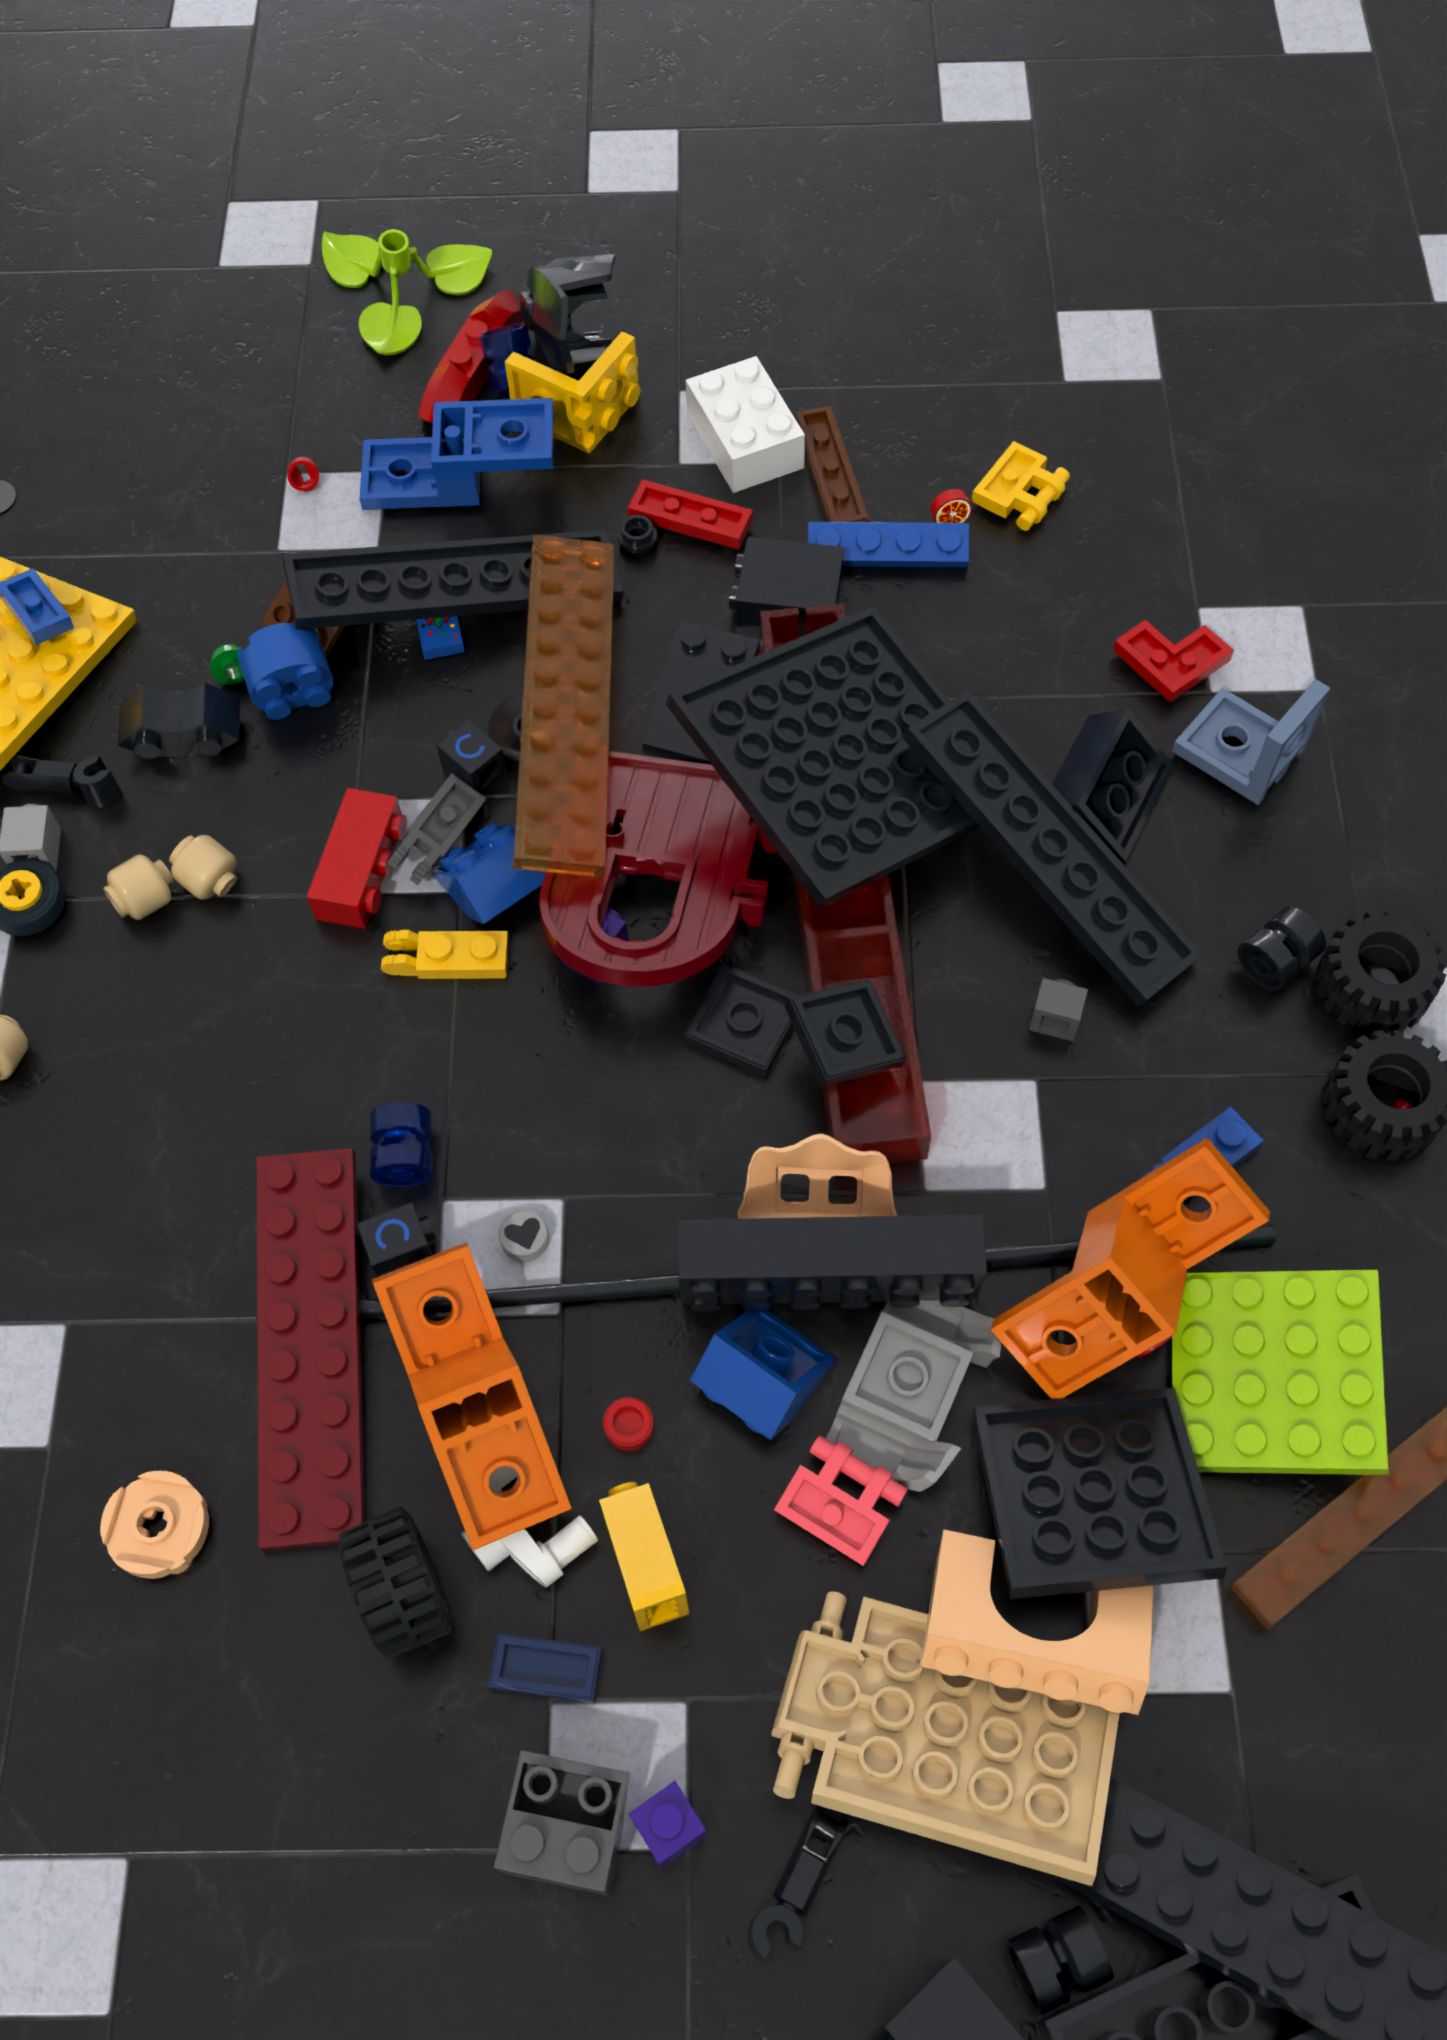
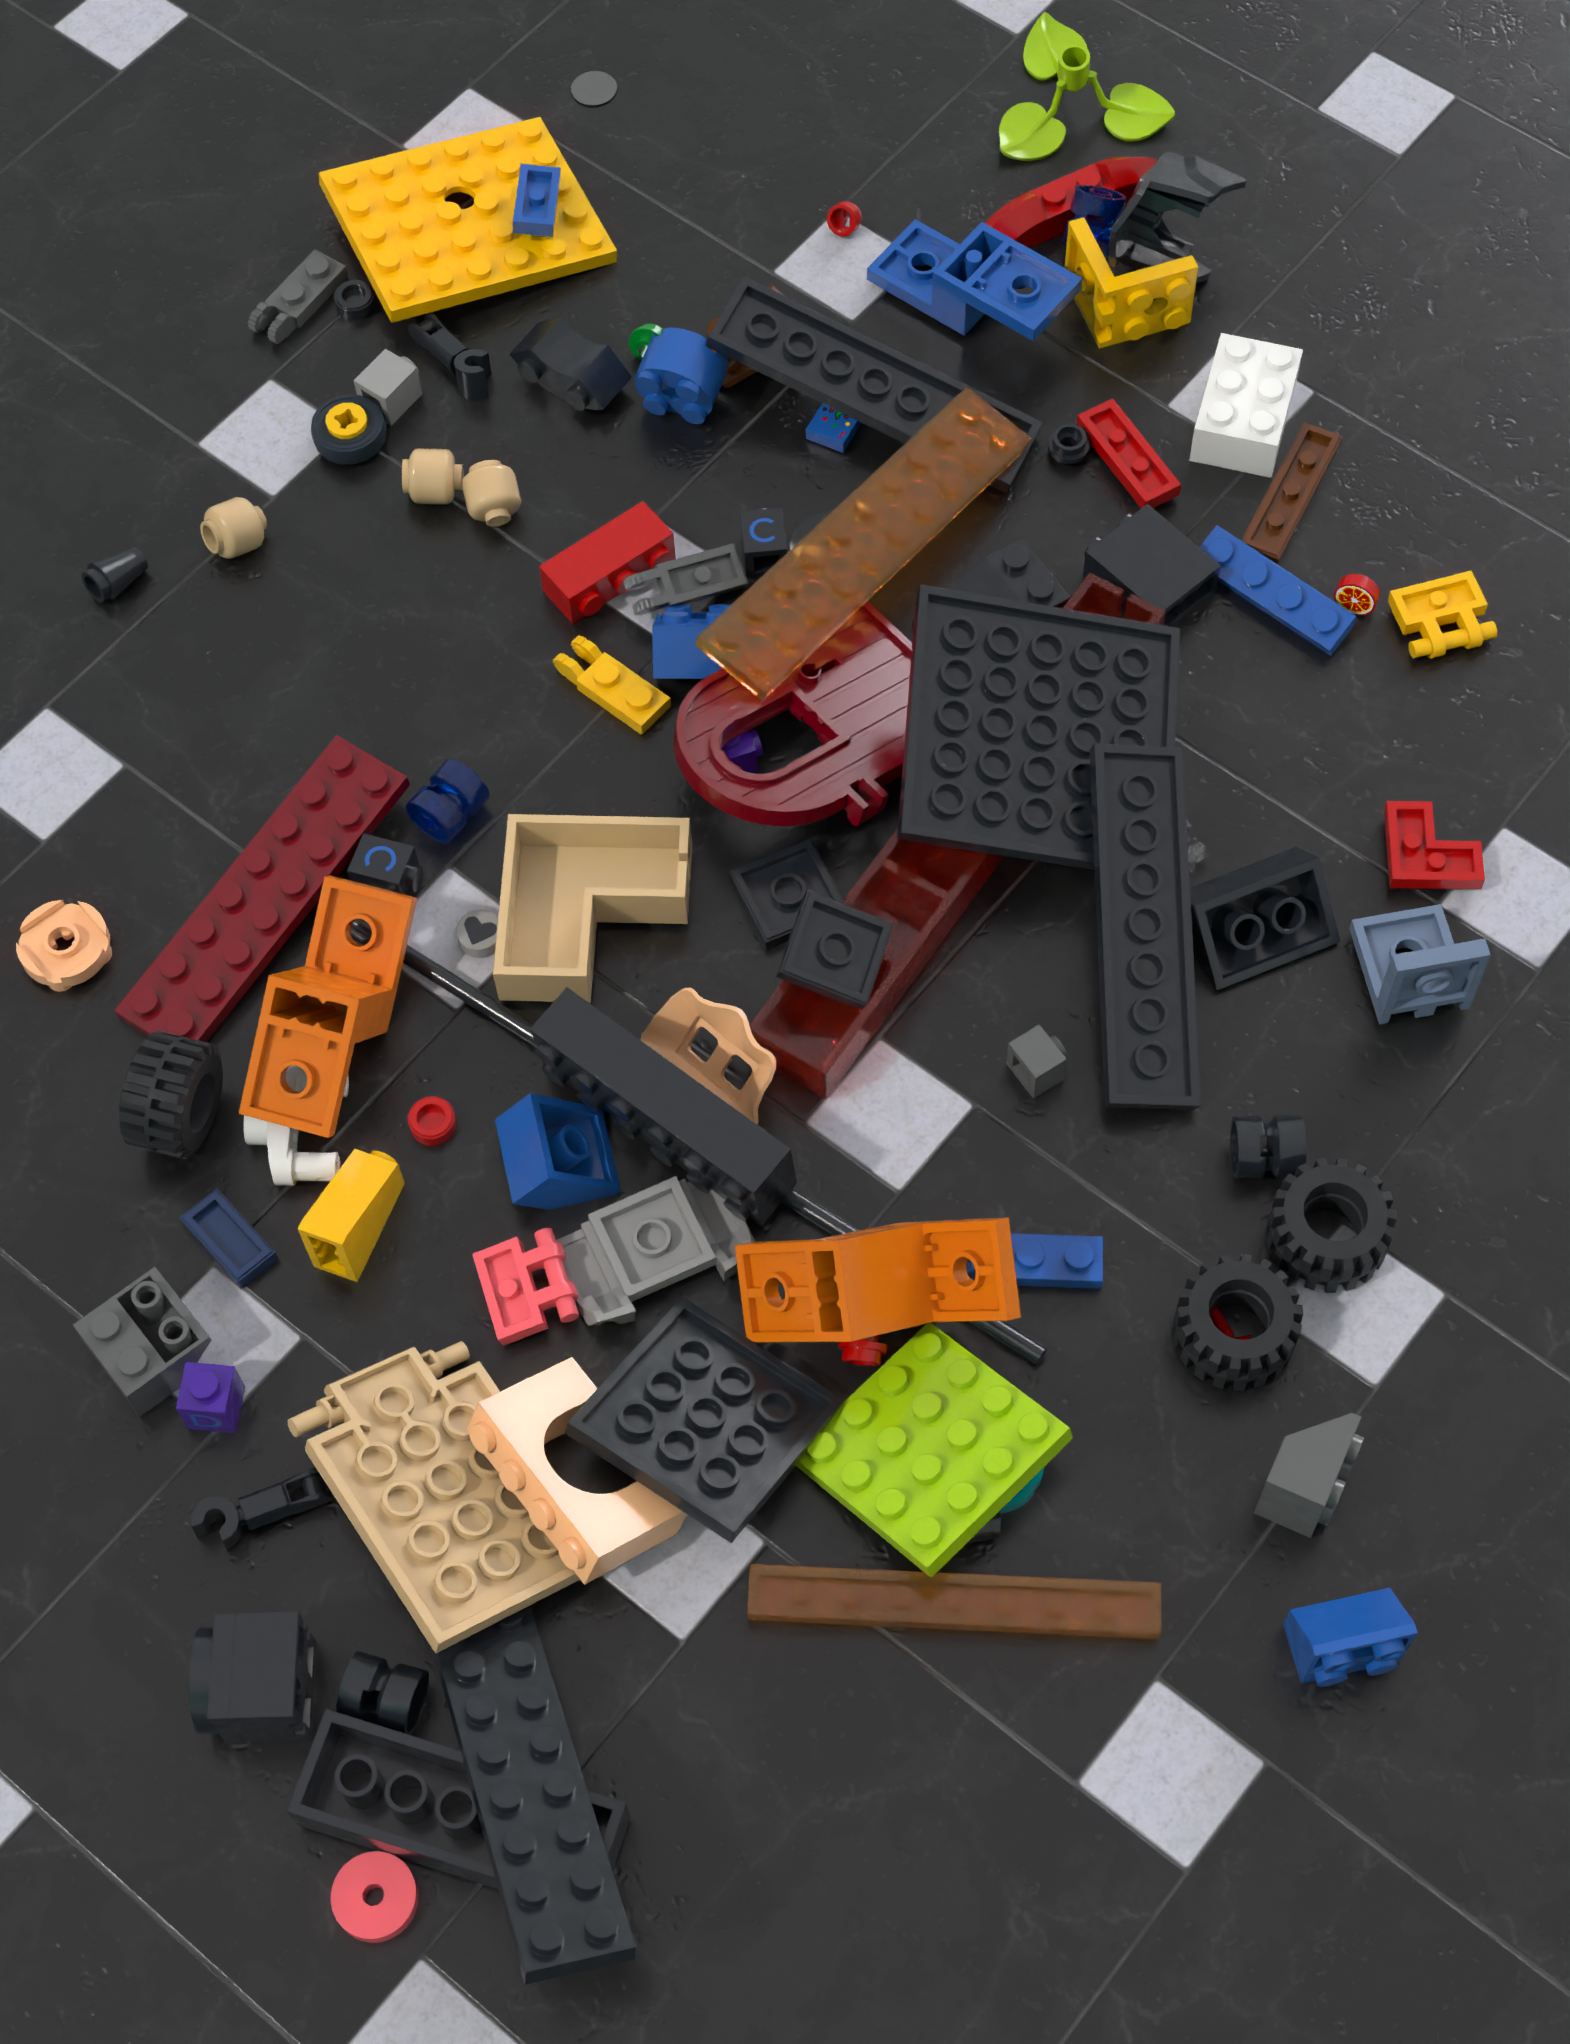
camera: 40 degrees right, 0 degrees up
(567, 1137) = (569, 876): none -> tan piece

